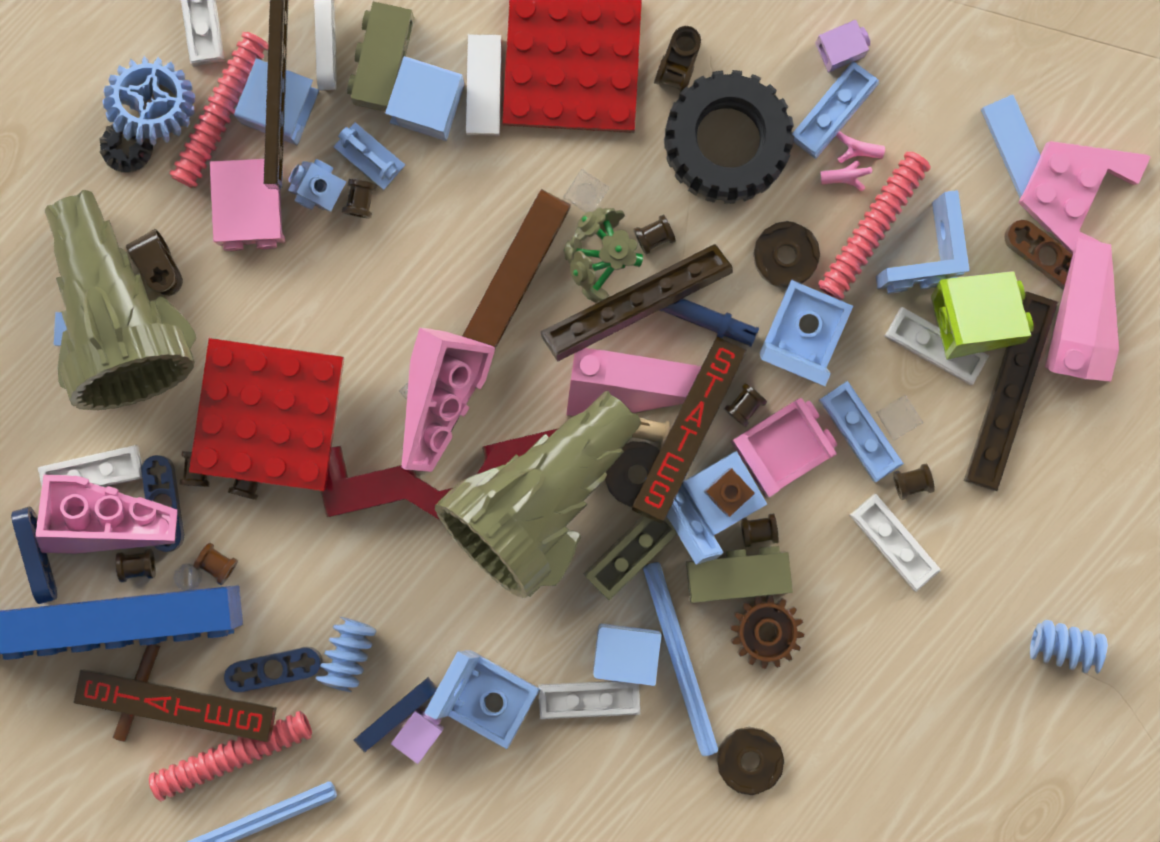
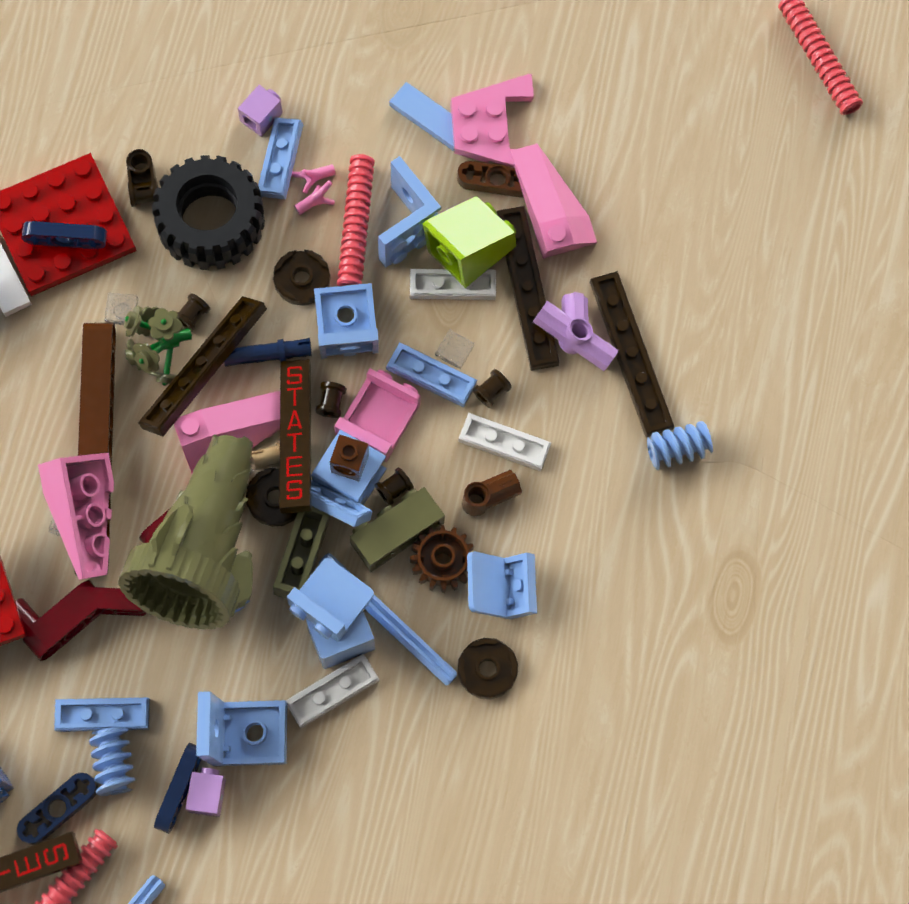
camera: 30 degrees left, 15 degrees down
(359, 600) = (101, 714): none -> light blue tile
(568, 84) = (64, 235): none -> dark blue beam
(633, 628) = (330, 599): none -> light blue bracket
(810, 692) = (502, 585): none -> light blue bracket
(853, 590) = (493, 492): none -> reddish brown piece
(1038, 457) = (574, 330): none -> lavender piece
(1076, 520) = (631, 354): none -> dark brown tile

